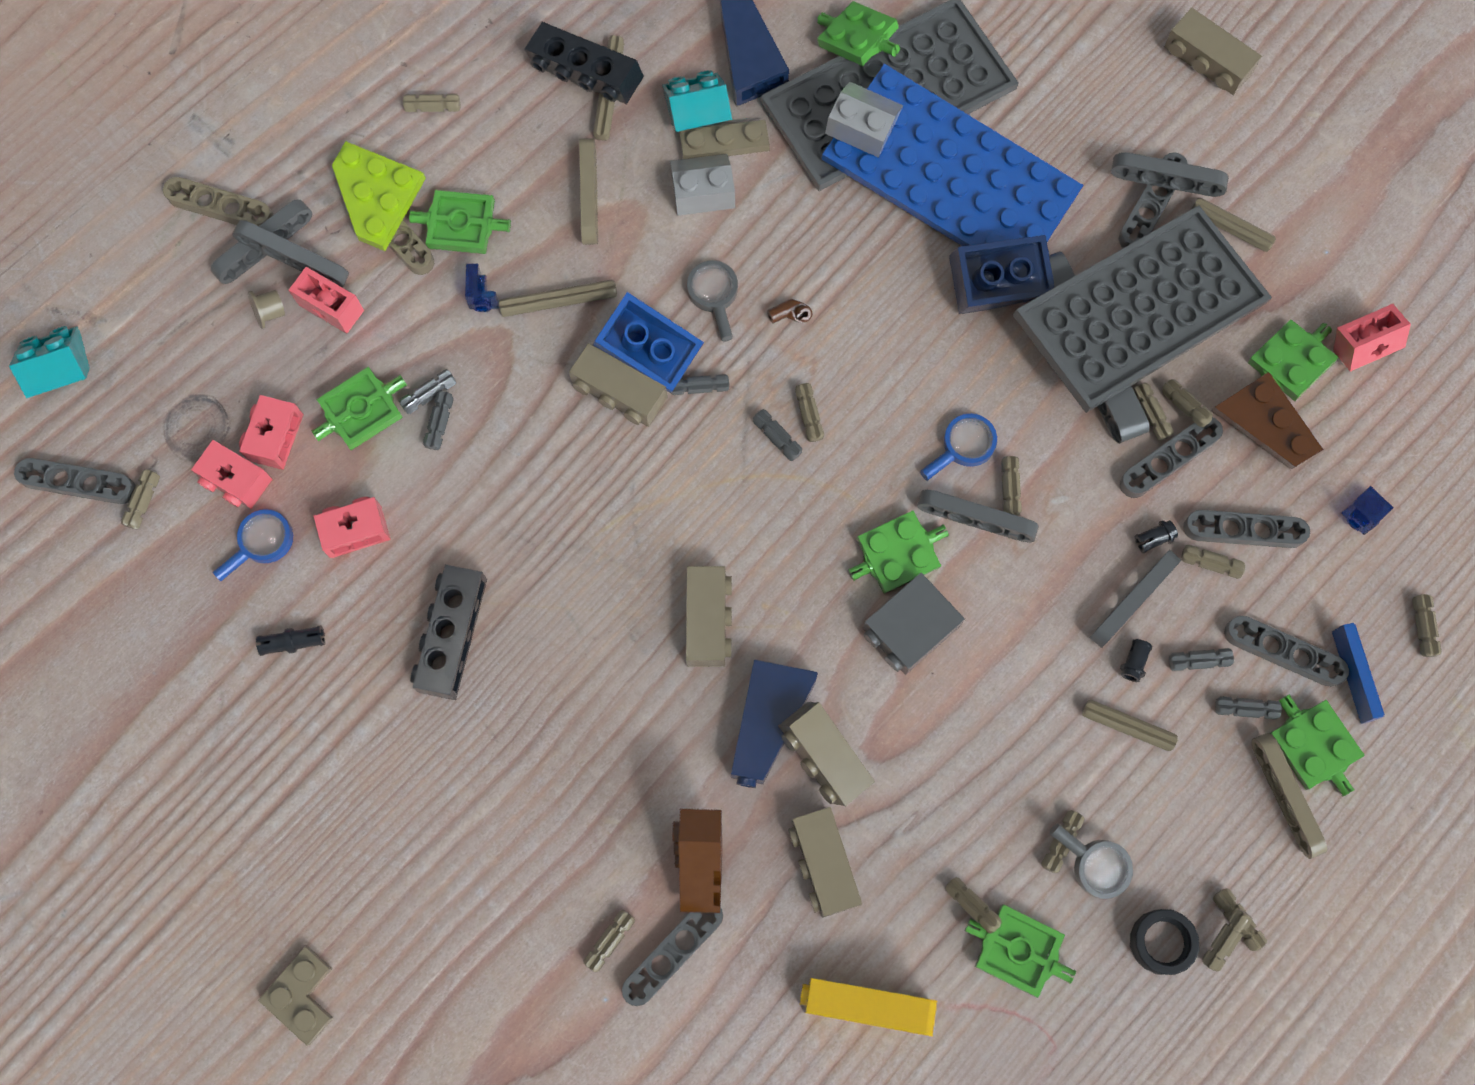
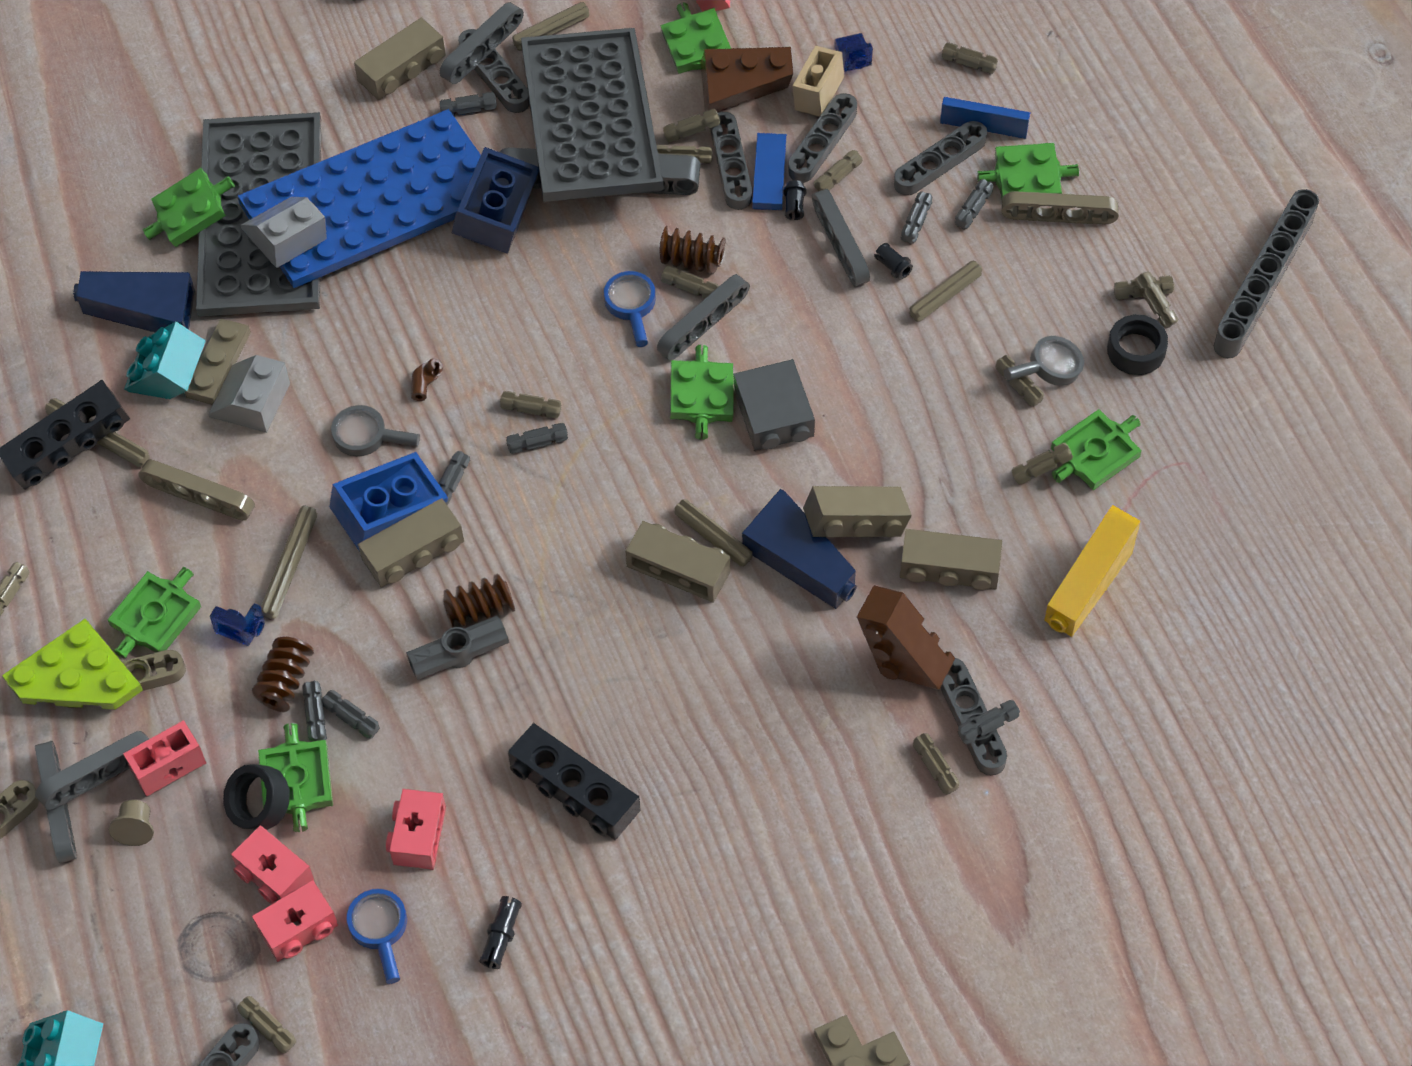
camera: 65 degrees left, 15 degrees down
(321, 387) = (236, 797): none -> black tyre
(445, 348) = (280, 673): none -> reddish brown piece
(547, 485) = (439, 653): none -> dark grey piece
(584, 469) = (477, 600): none -> reddish brown piece
(664, 973) = (988, 721): none -> dark grey axle
(754, 633) = (713, 532): none -> dark tan axle
(1041, 470) = (691, 251): none -> reddish brown piece
(1102, 199) = (469, 103): none -> dark grey axle
(1117, 117) = (400, 58): none -> dark tan brick
(1178, 498) = (769, 171): none -> blue tile
(1305, 494) = (818, 81): none -> tan brick
(1341, 1046) = (1266, 273): none -> dark grey beam

